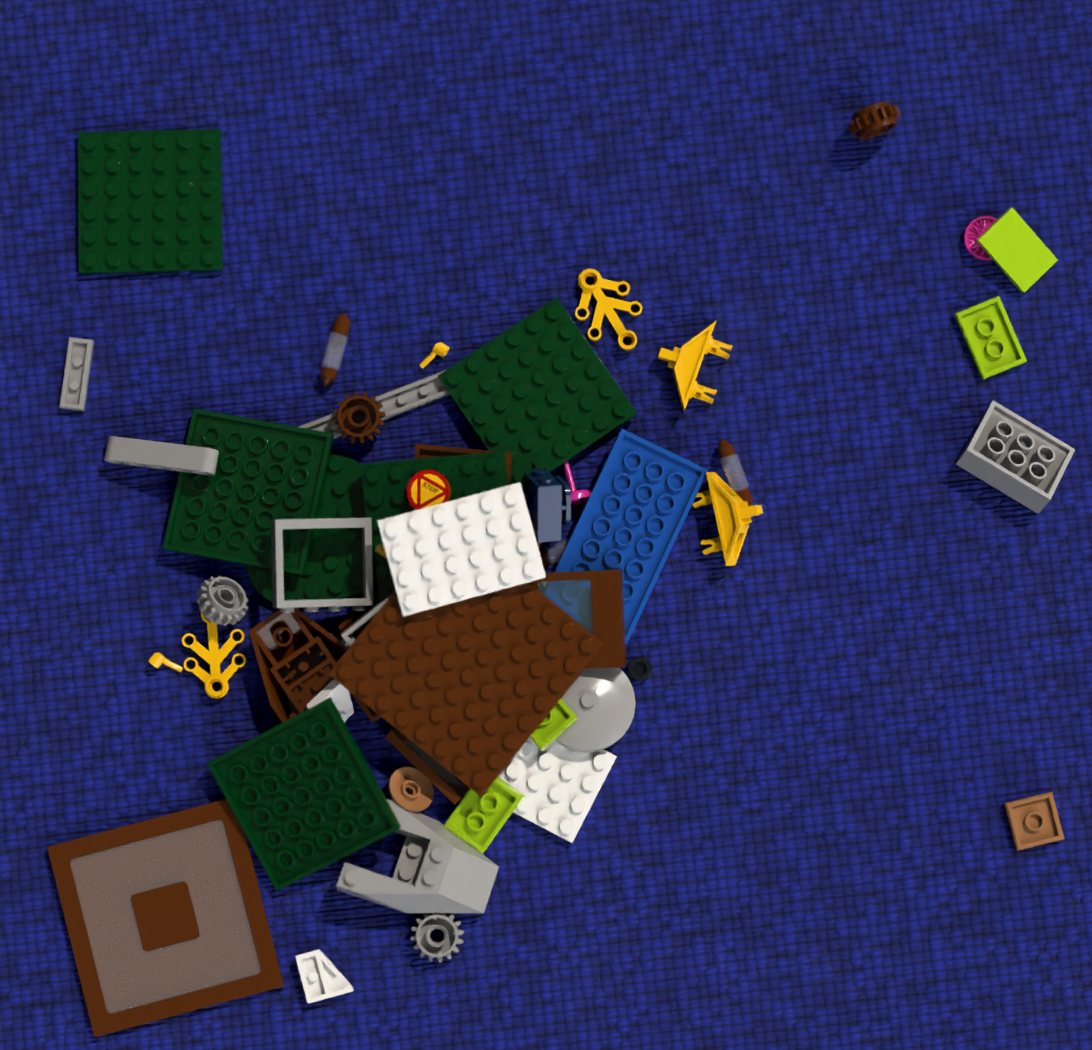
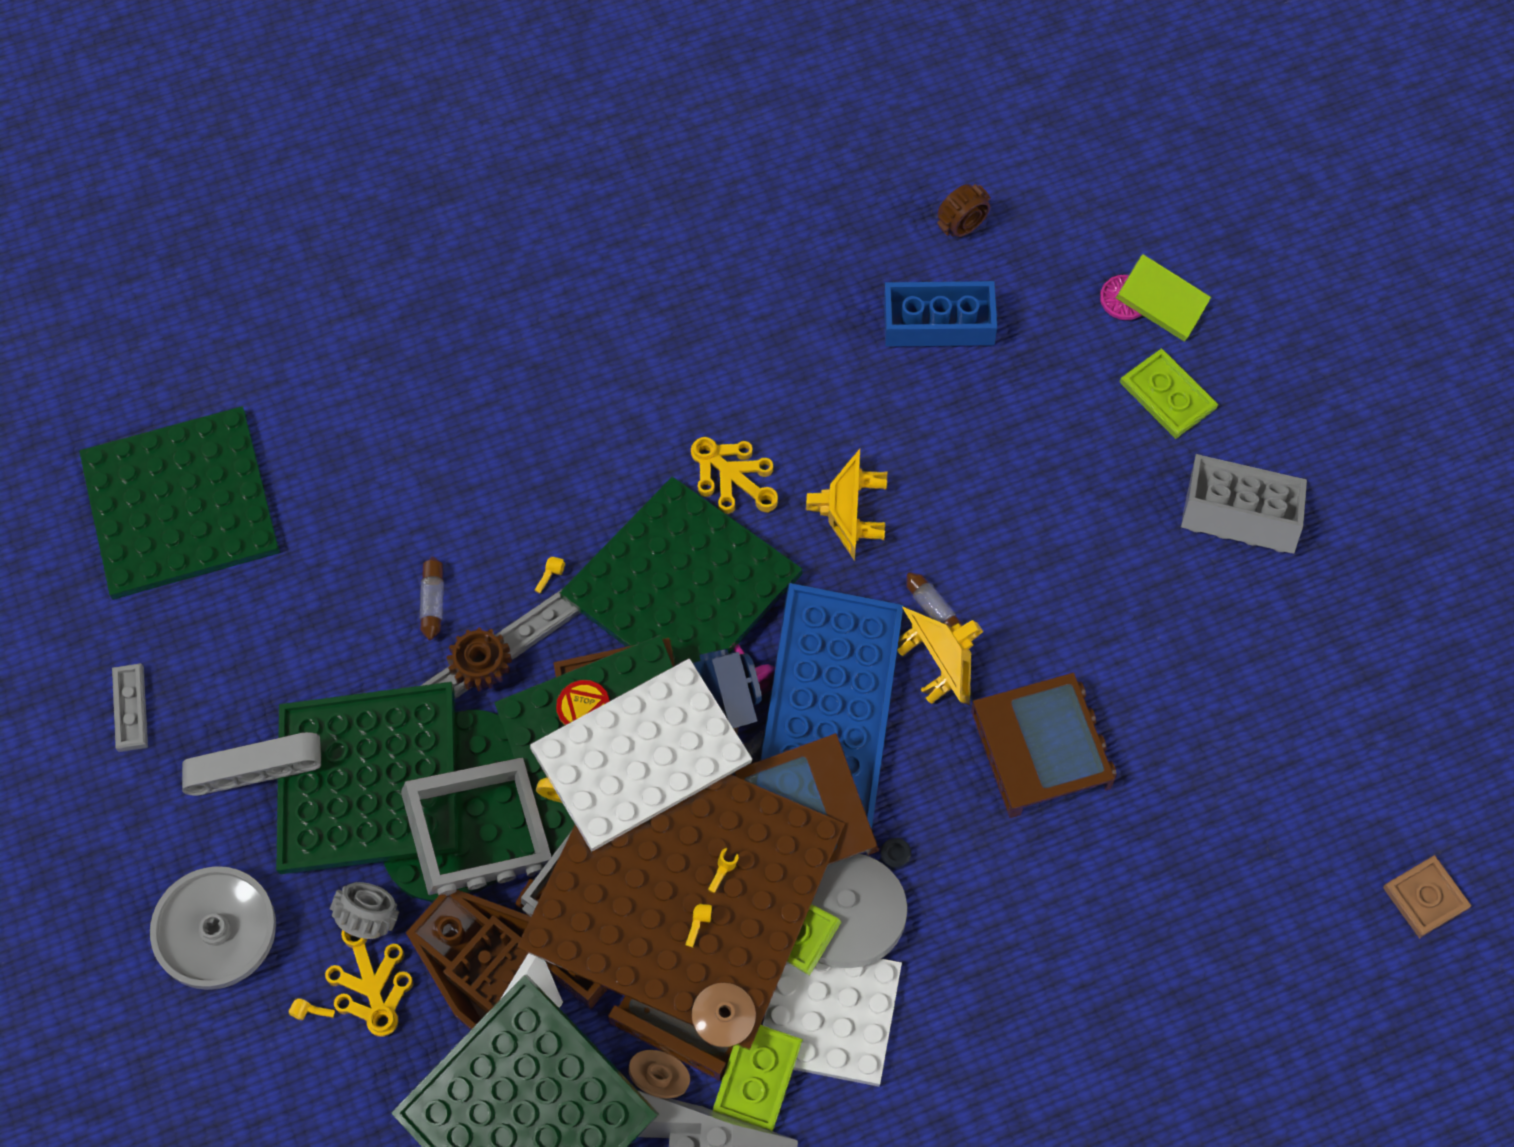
camera: 15 degrees left, 20 degrees down
(105, 579) = (213, 928): none -> light grey dish
(468, 754) = (720, 1030): none -> medium nougat dish
(473, 687) = (701, 913): none -> yellow hand
(497, 659) = (724, 867): none -> yellow hand
(781, 615) = (1042, 742): none -> panel
(822, 212) = (940, 313): none -> blue brick

